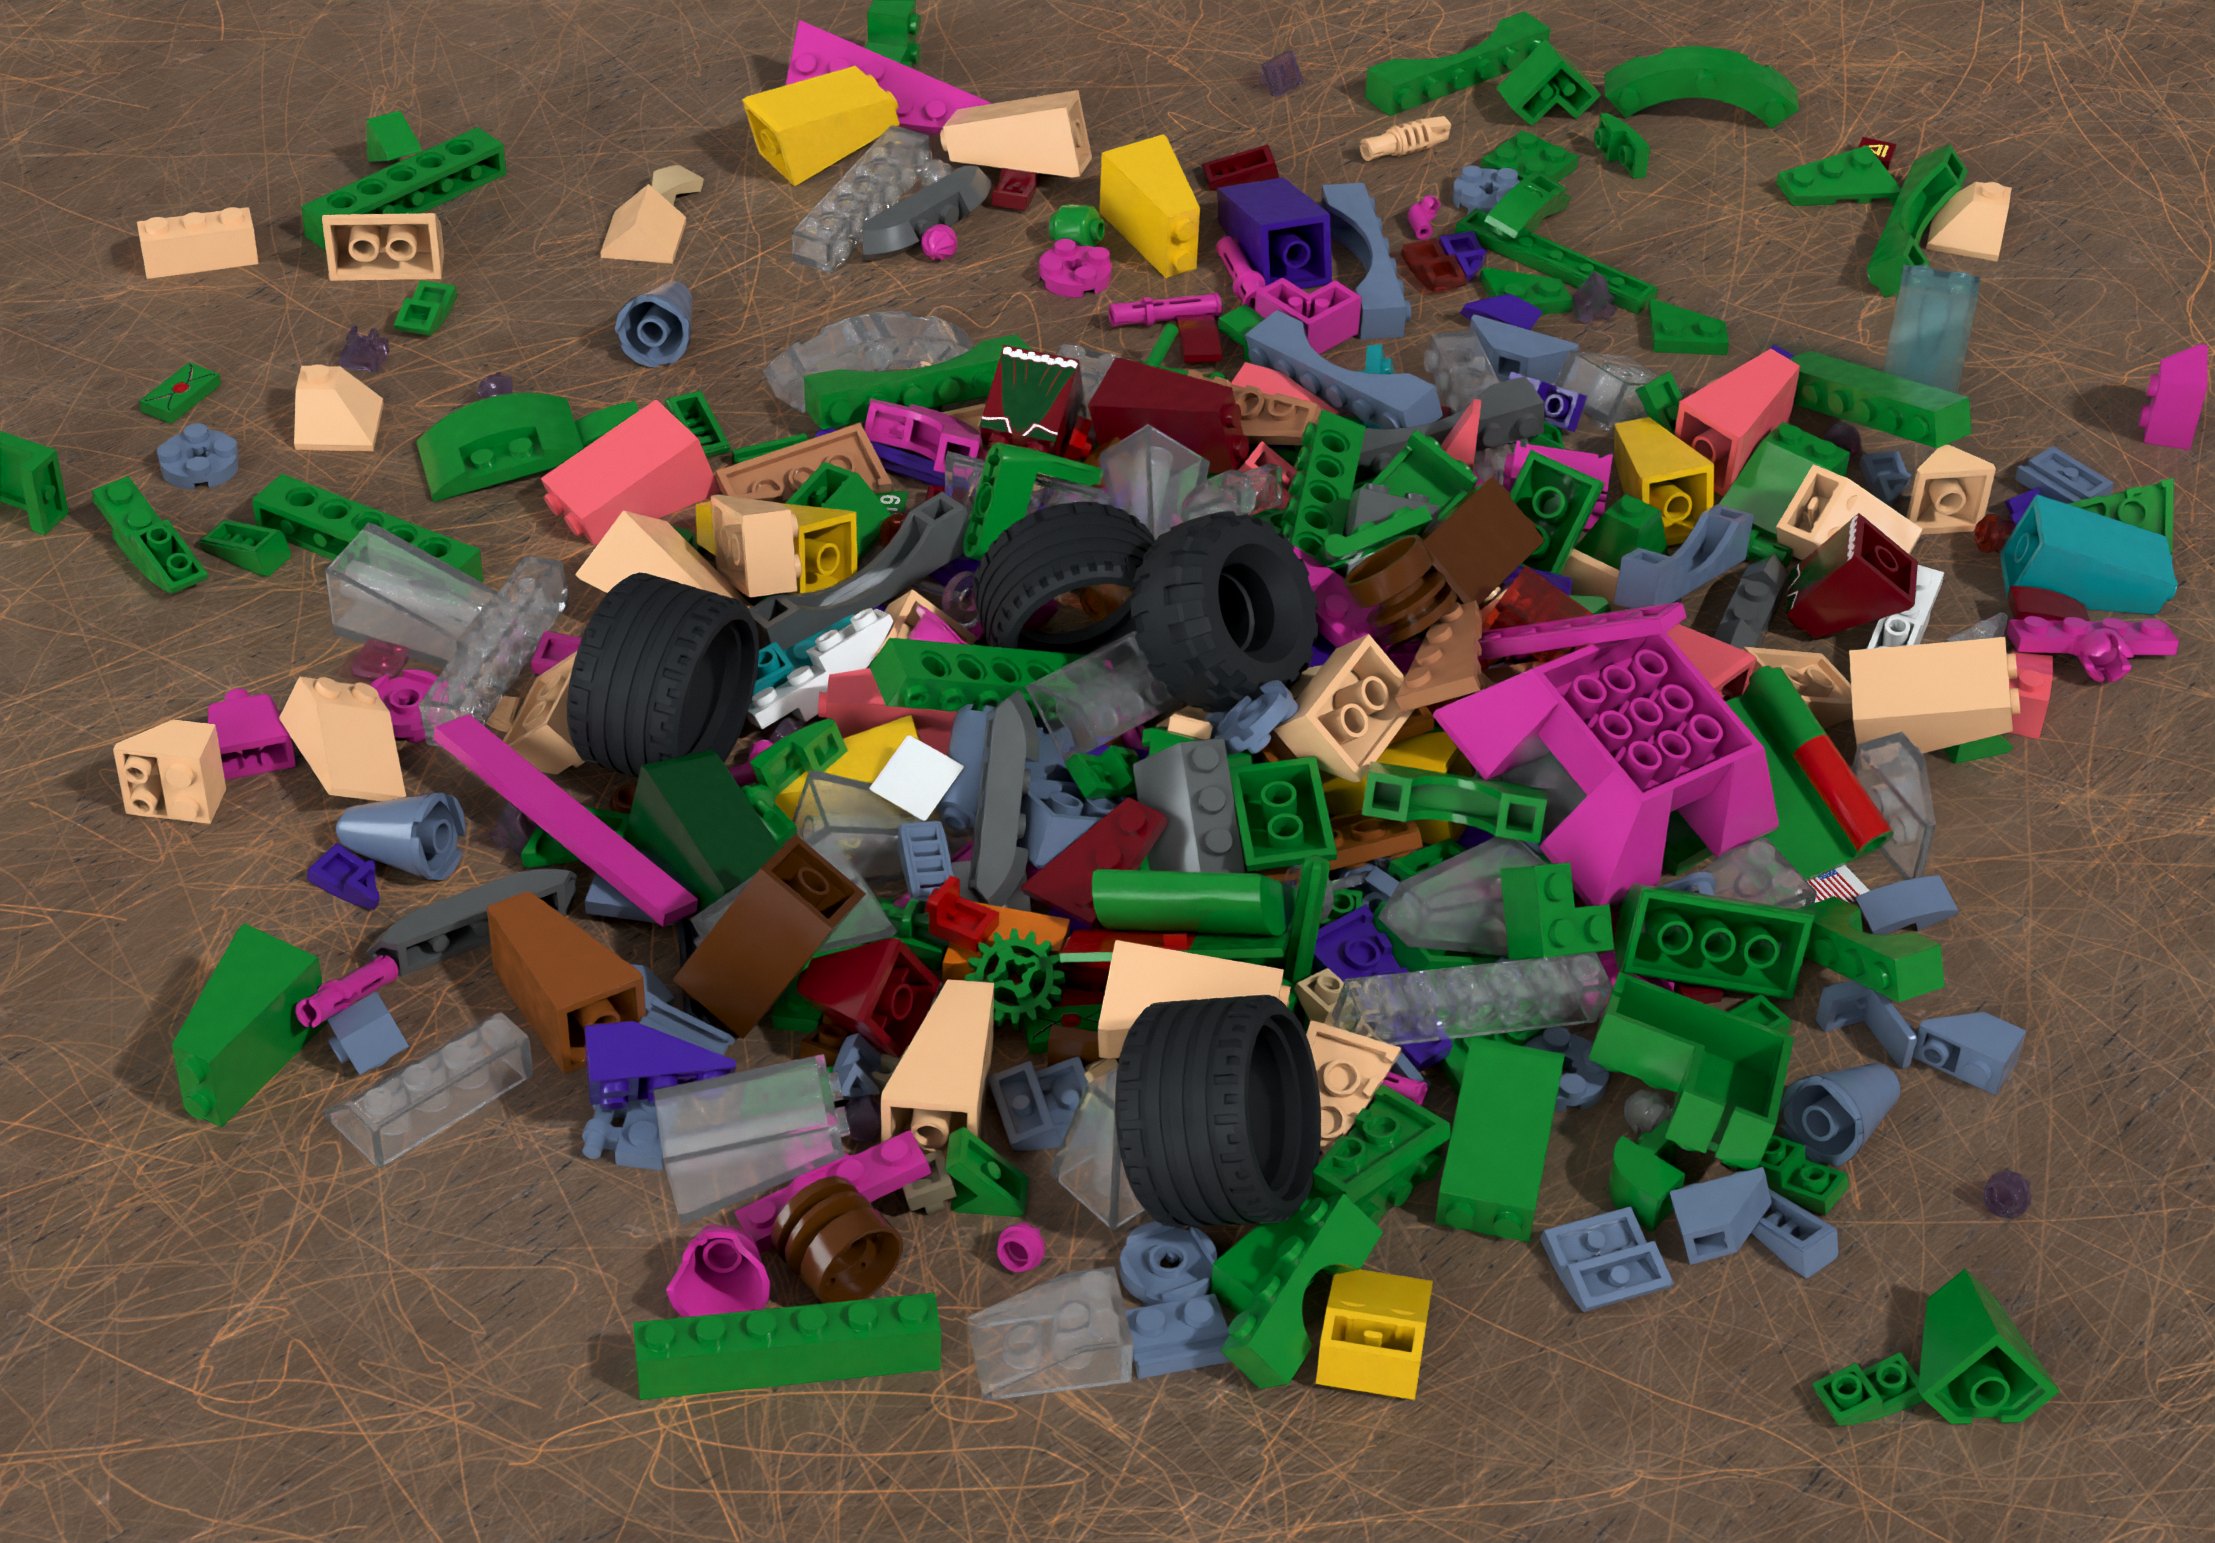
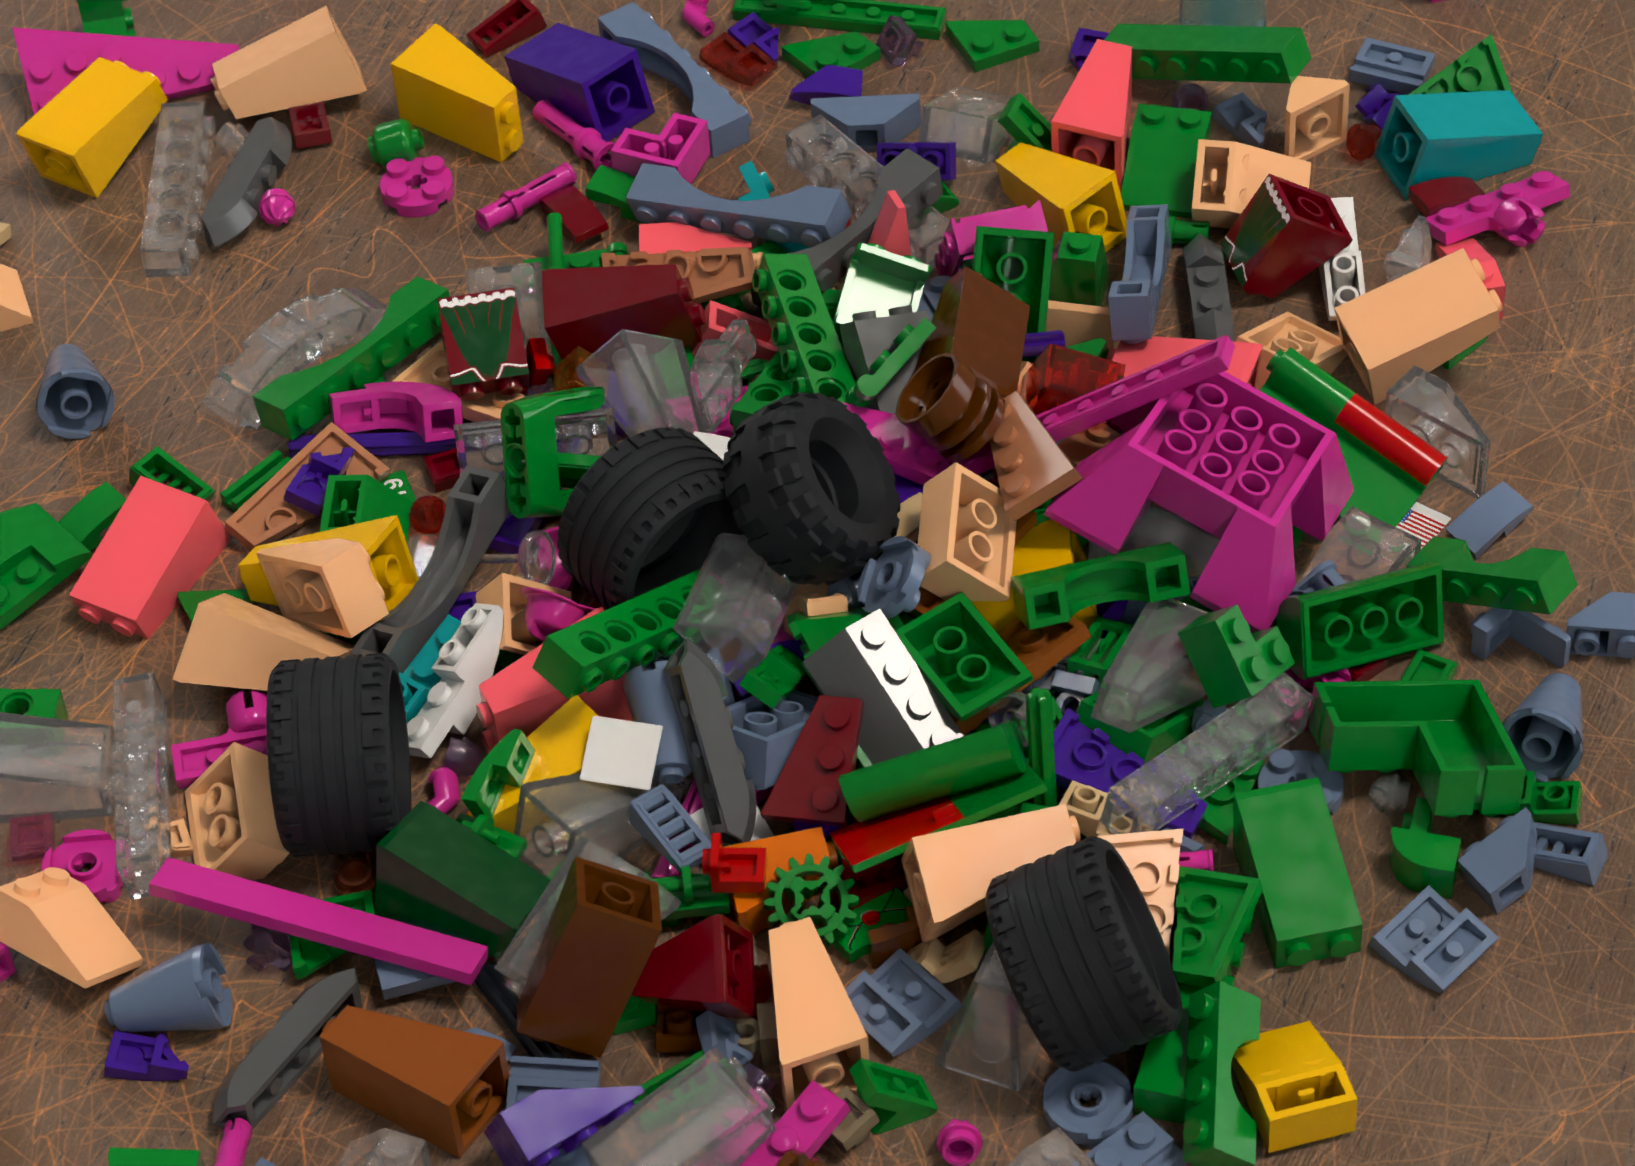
camera: 20 degrees left, 5 degrees up
(803, 465) = (310, 483): none -> dark purple slope

